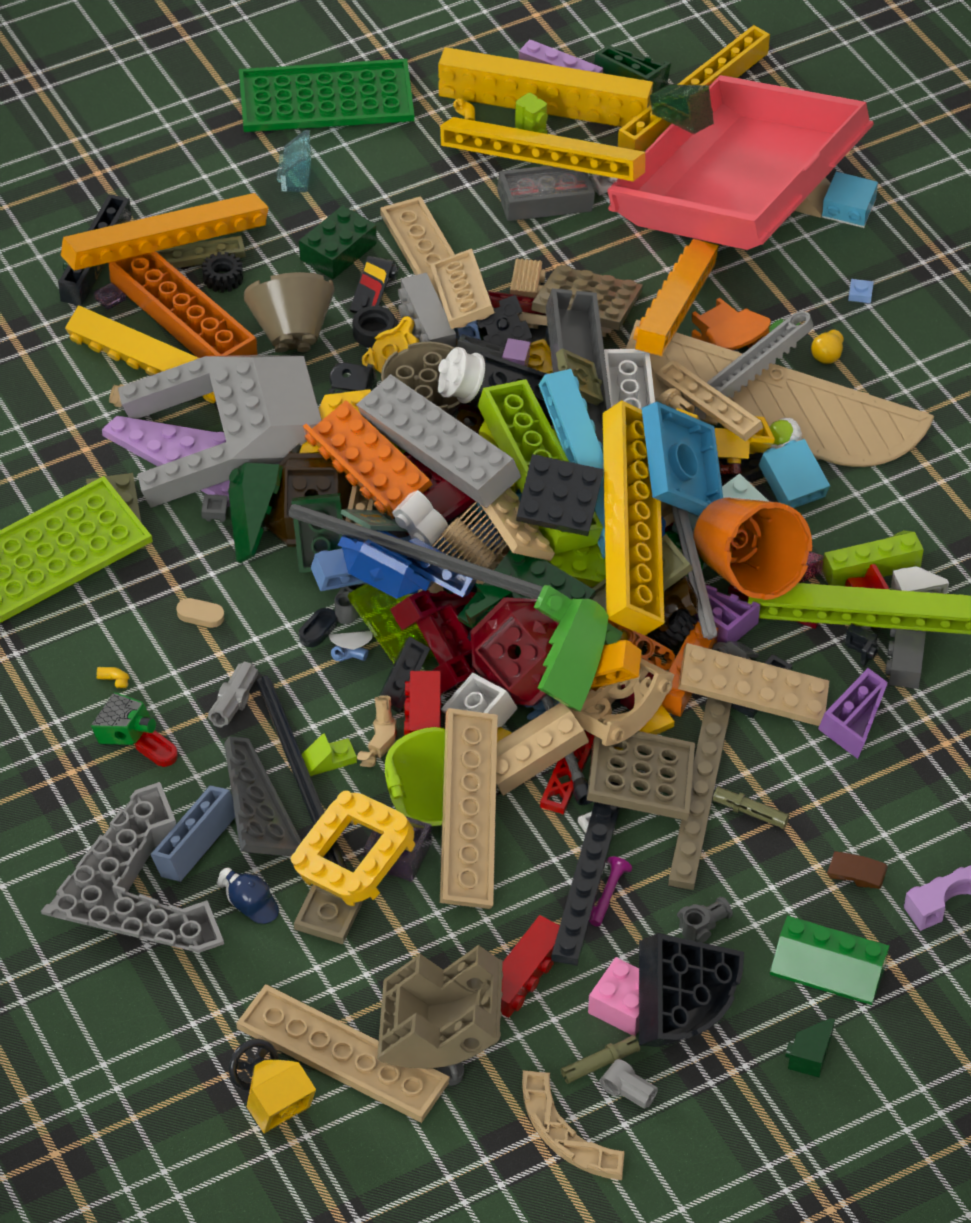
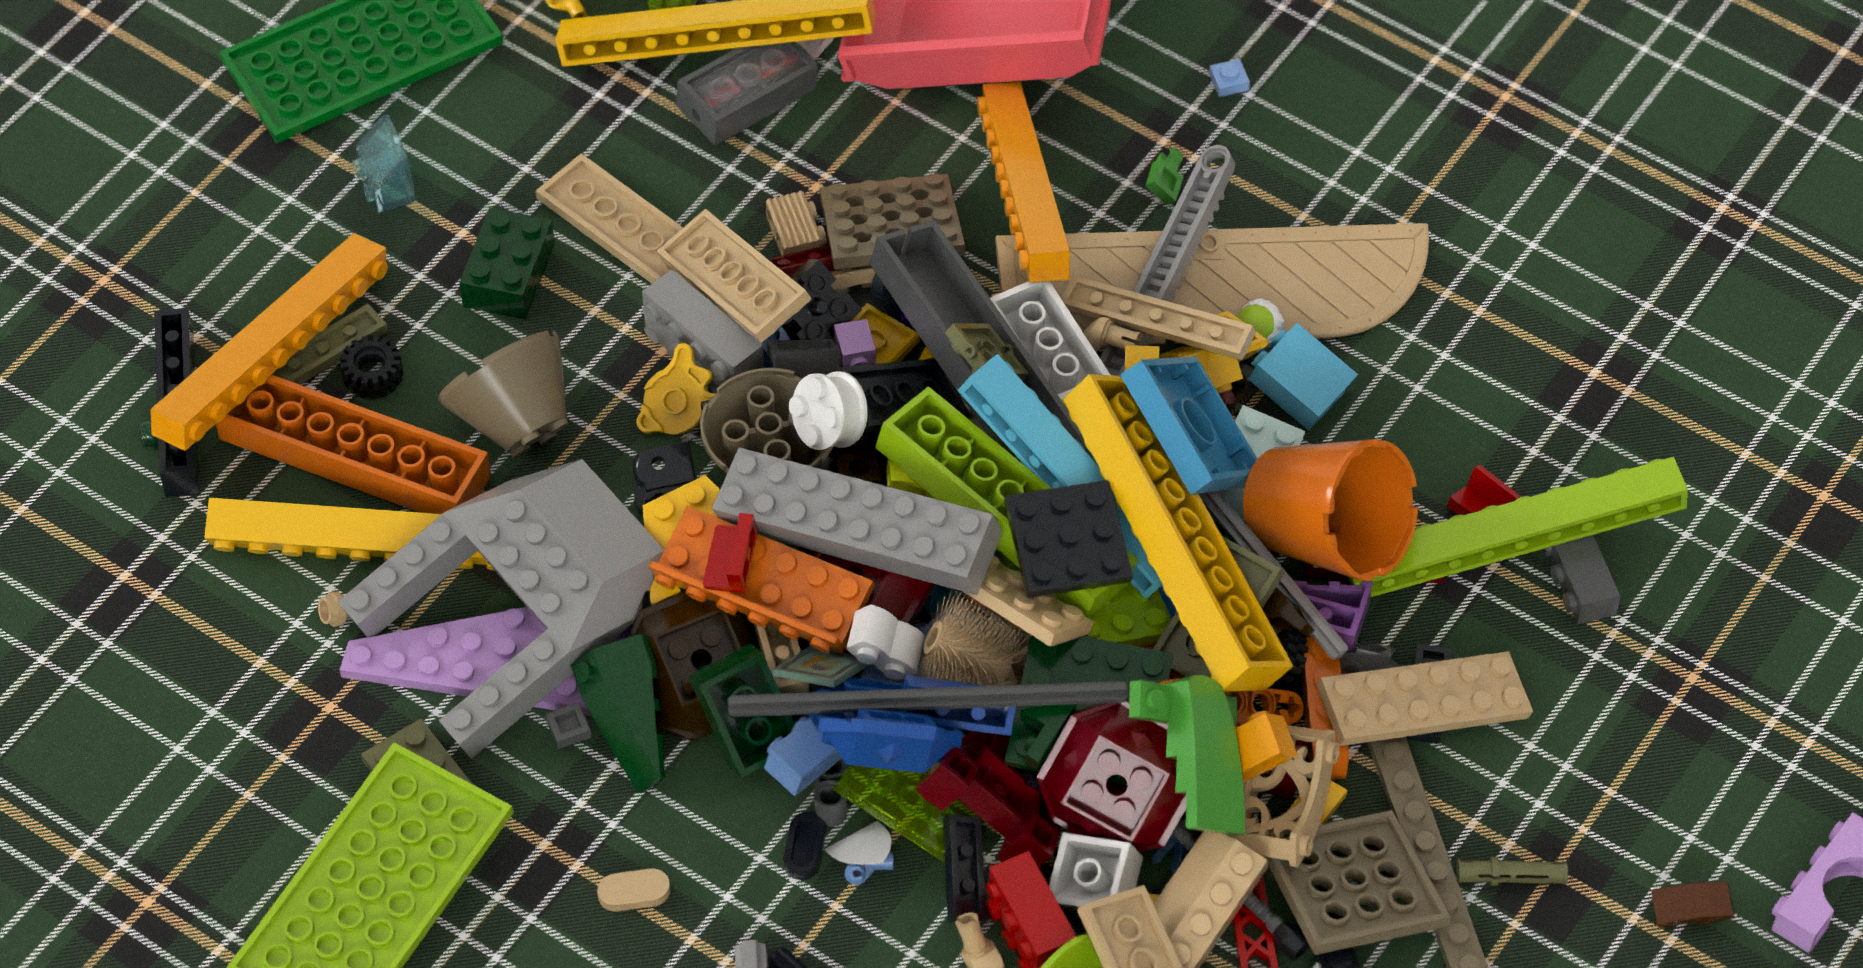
camera: 25 degrees left, 5 degrees up
(109, 296) = (230, 462): tile -> none
(353, 434) = (731, 555): none -> red panel
(369, 315) = (620, 351): black tyre -> none
(373, 282) = (591, 309): black door -> none
(730, 328) = (1107, 199): orange piece -> none
(827, 347) = (1245, 175): yellow piece -> none
(853, 713) = (1569, 685): medium lavender wedge -> none
(863, 642) = (1519, 578): black bracket -> none
(888, 554) = (1481, 437): lime wedge -> none
(918, 580) = (1540, 469): white slope -> none

